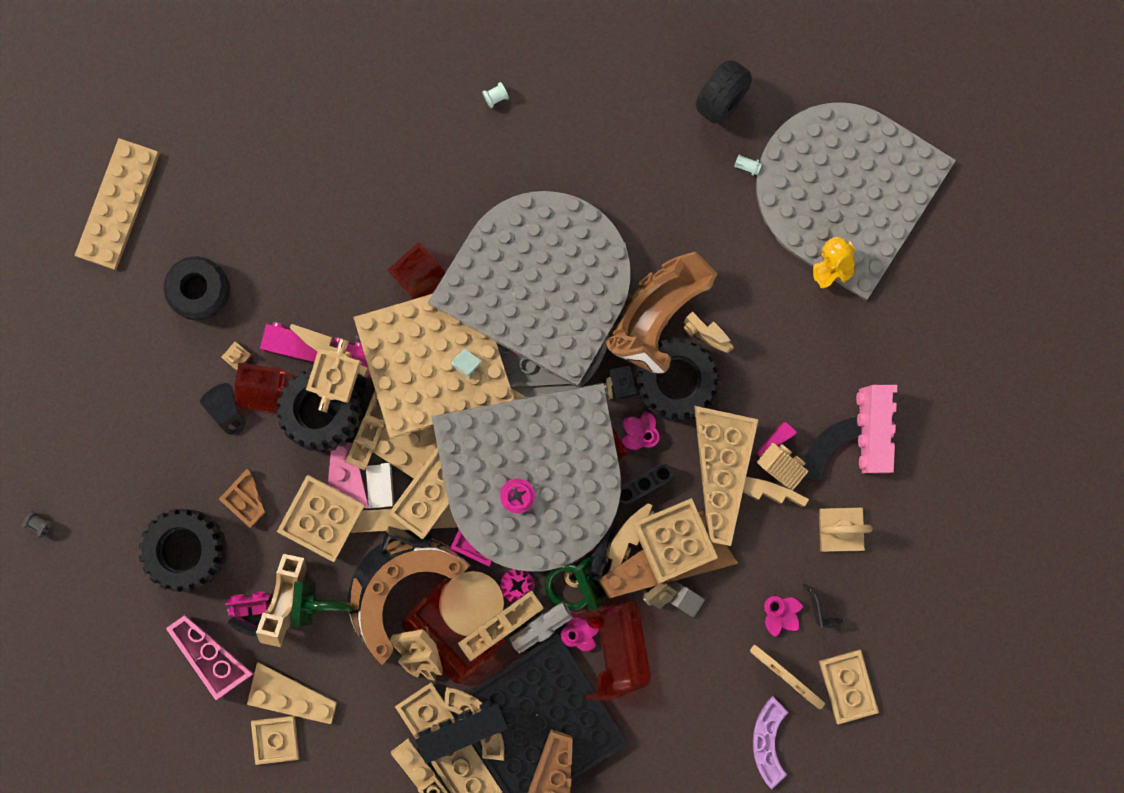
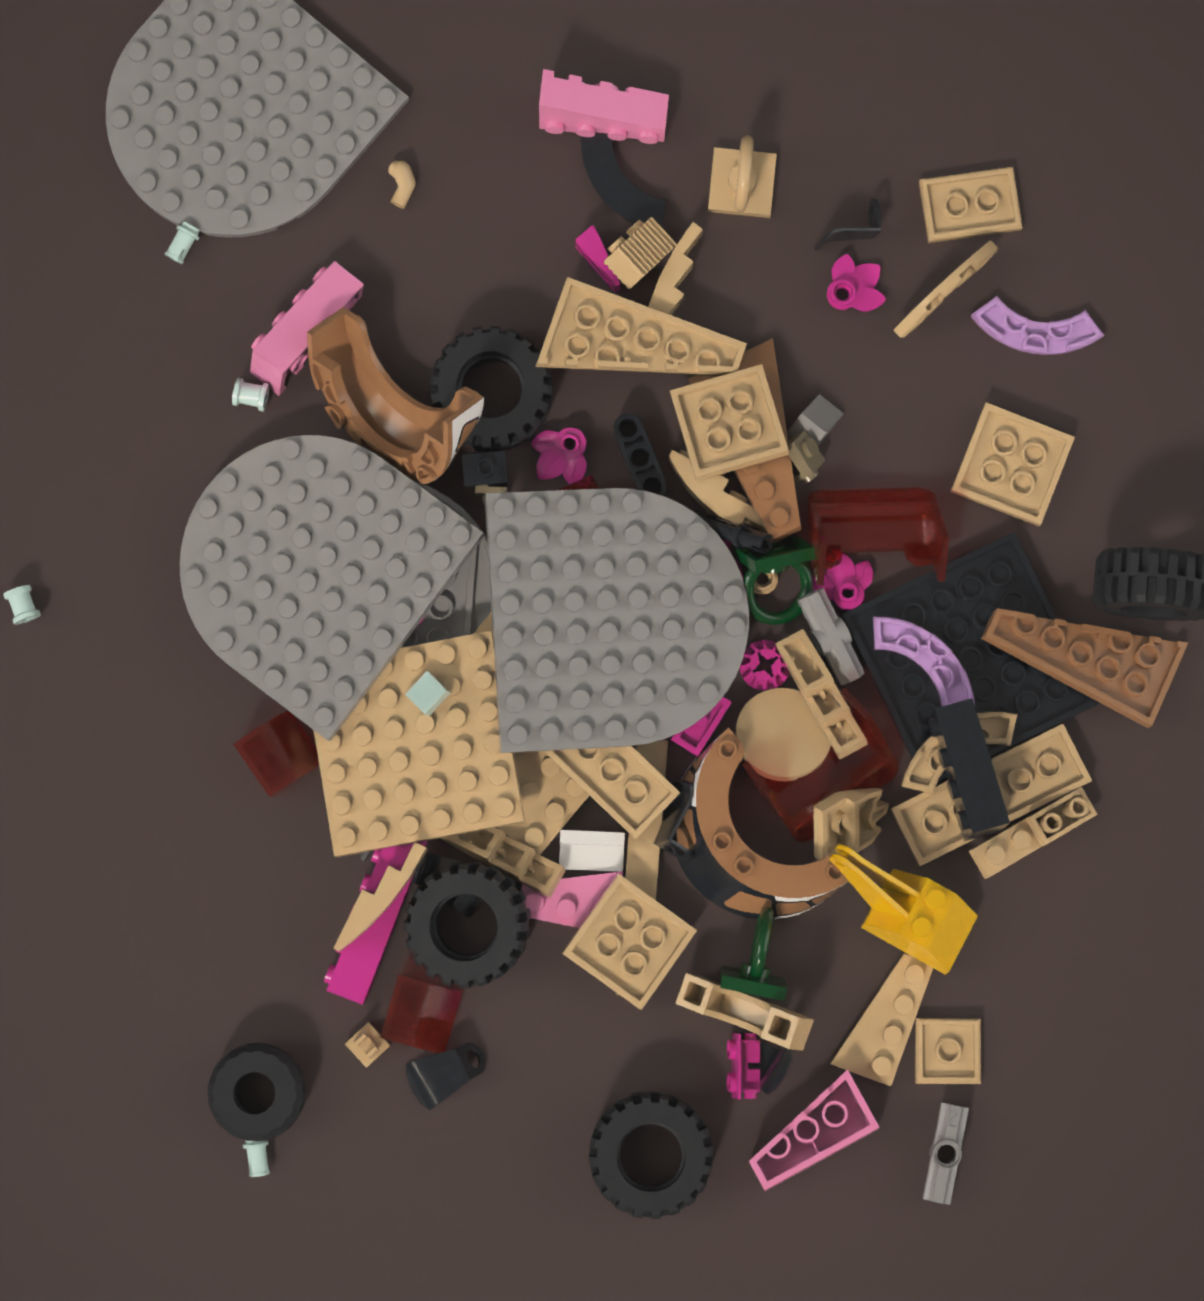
camera: 80 degrees left, 0 degrees up
(117, 204) = (108, 1202): tan plate -> none
(154, 295) = (257, 1158): none -> light aqua pin
(193, 746) = (942, 1175): none -> light grey piece
(244, 499) = (586, 1055): medium nougat wing -> none
(333, 375) = (421, 891): tan plate -> none
(362, 704) = (909, 910): none -> yellow slope
(514, 505) = (640, 627): dark pink gear -> none
(536, 697) = (926, 651): none -> lavender tile
(653, 221) = (250, 394): none -> light aqua bush
(674, 737) = (1012, 464): none -> tan plate
(687, 239) = (286, 343): none -> bright pink wedge
(711, 335) = (431, 330): tan plate -> none
(723, 91) = (68, 261): black tyre -> none
(810, 304) = (405, 180): none -> tan arm
(838, 262) = (350, 130): yellow head -> none

